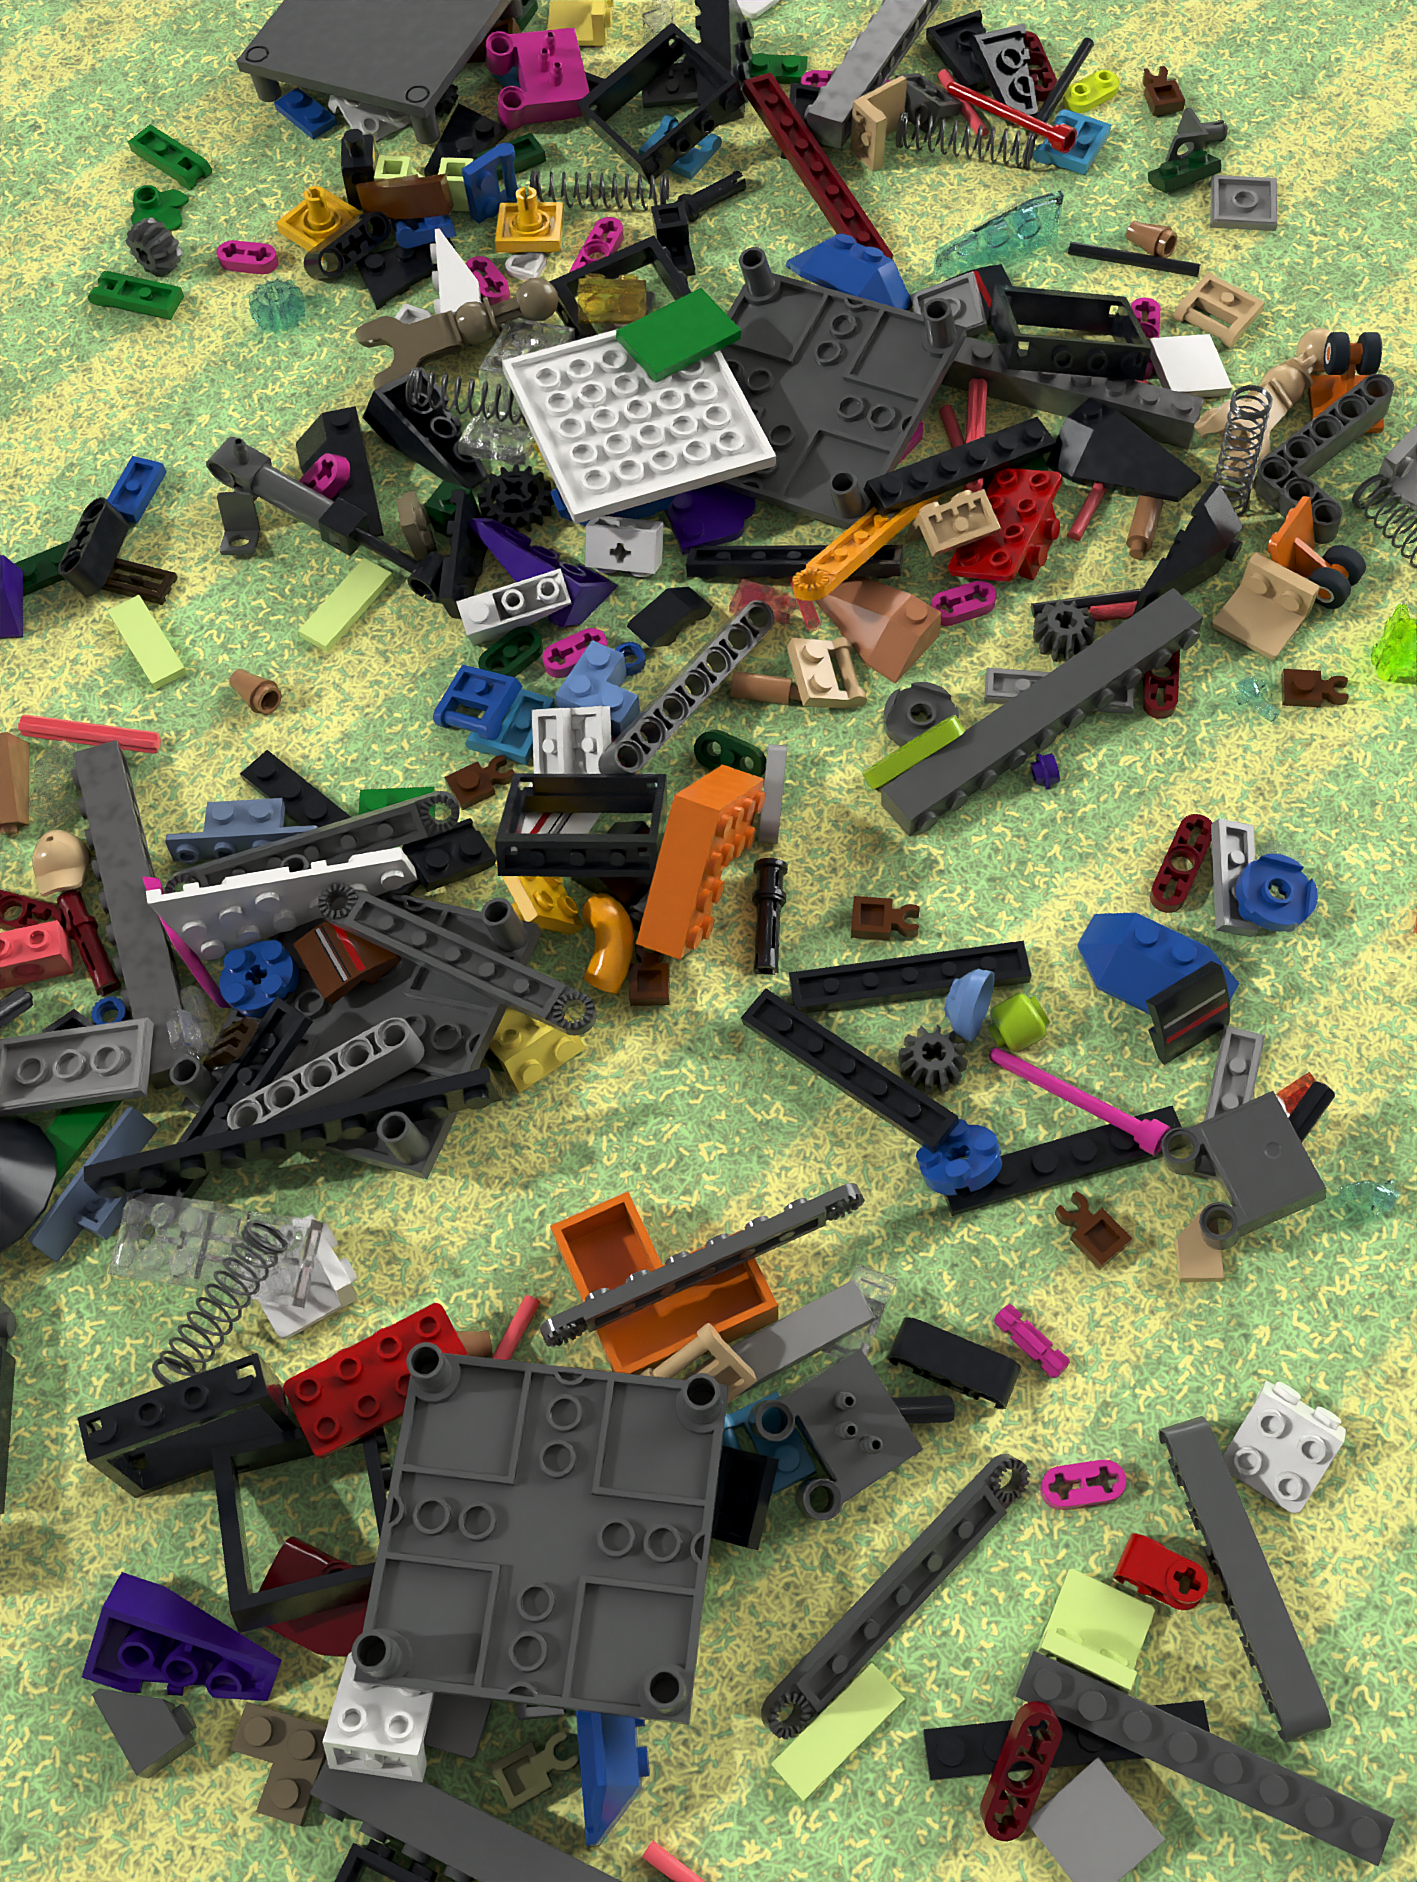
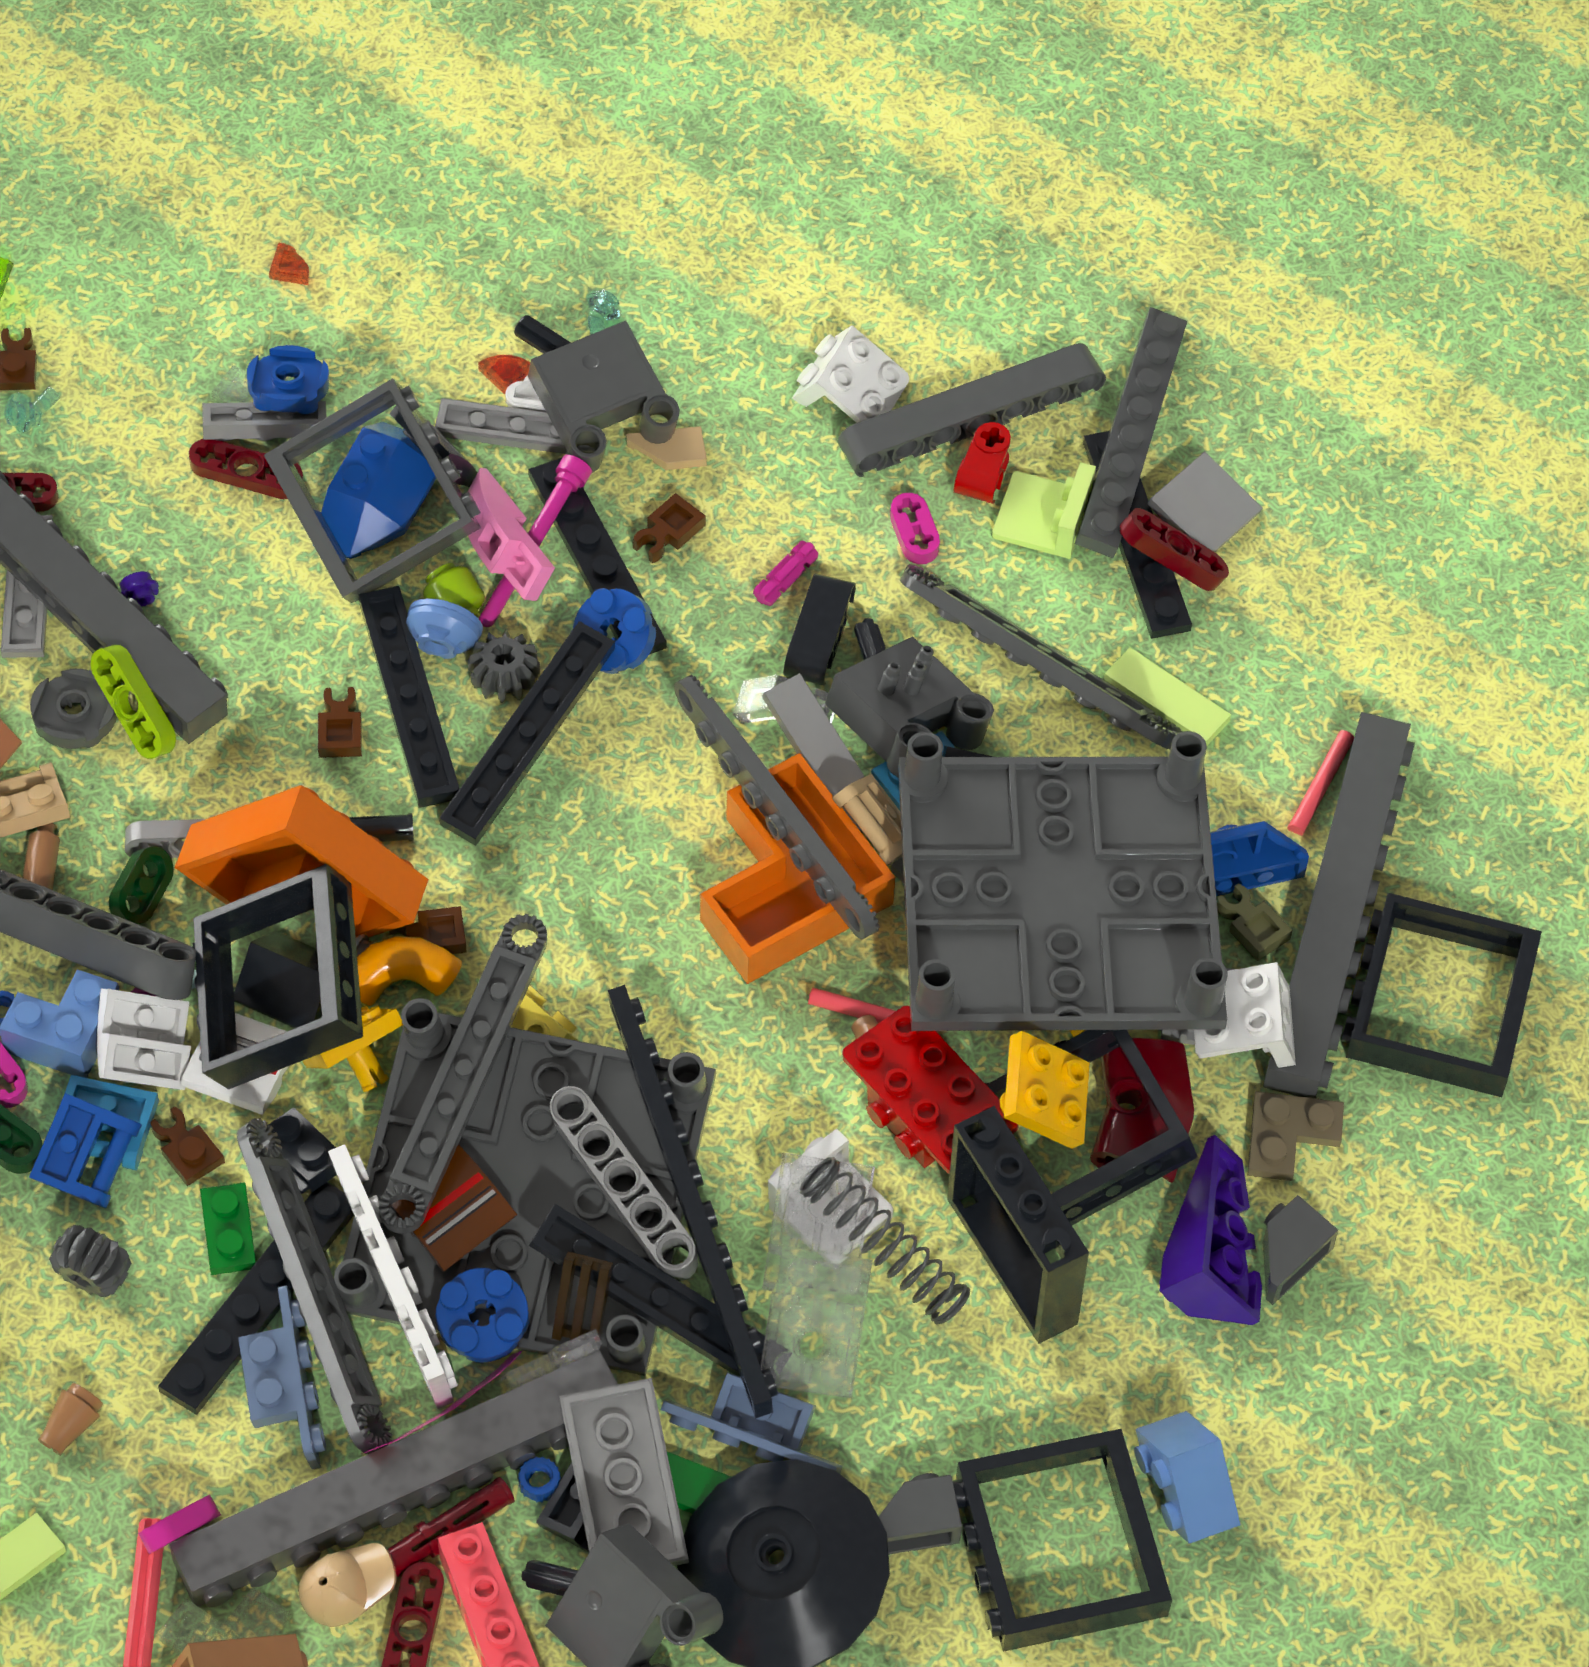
camera: 105 degrees left, 5 degrees down
(137, 752) = (179, 1524): none -> dark pink beam
(313, 1472) = (1046, 1090): none -> yellow plate
(376, 701) = (90, 1261): none -> dark grey gear
(1077, 1058) = (504, 542): none -> bright pink slope
(1099, 897) = (333, 427): none -> dark grey window

